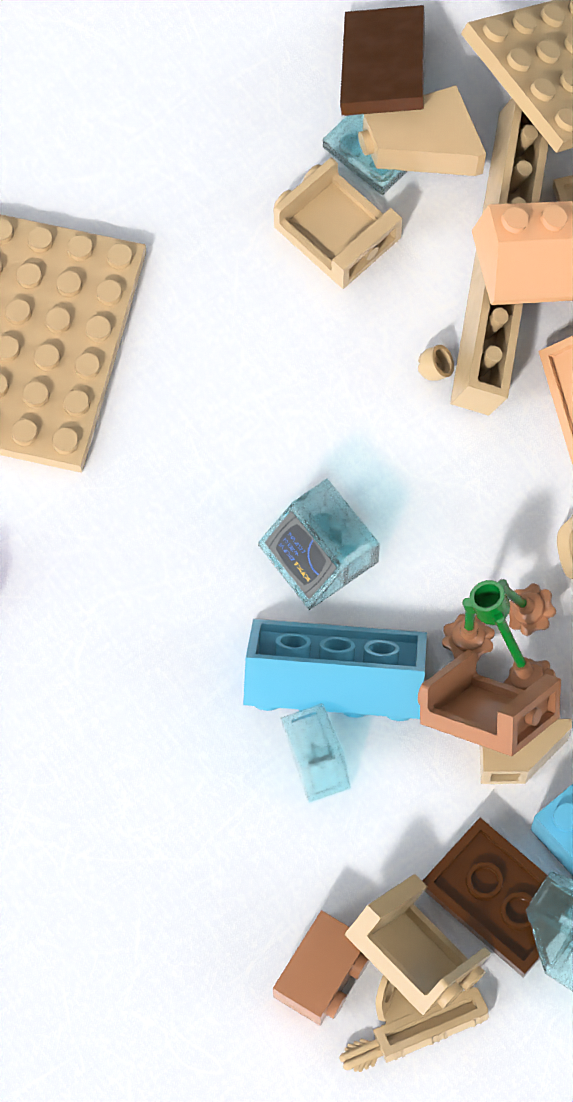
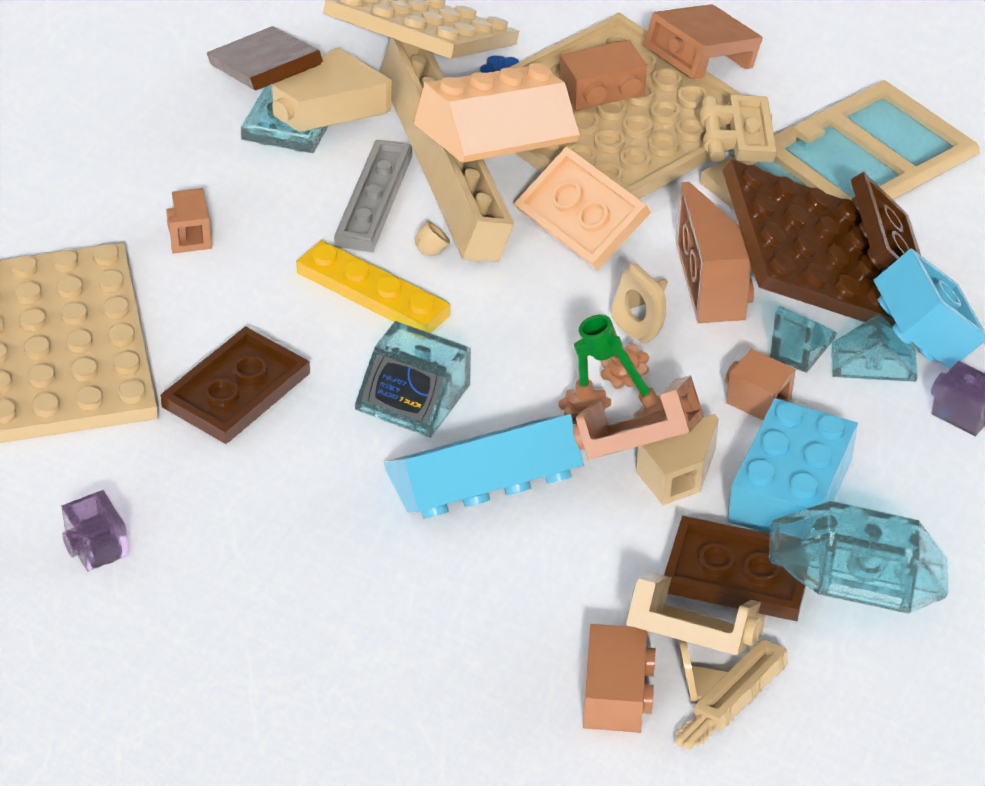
camera: 30 degrees left, 25 degrees down
(163, 470) = (235, 384): none -> reddish brown plate
(216, 243) = (189, 221): none -> nougat brick
(316, 752) = (510, 521): clear light blue slope -> none
(335, 224) = (284, 181): tan panel -> none
(351, 400) = (372, 287): none -> yellow plate
(412, 277) = (373, 196): none -> light grey tile

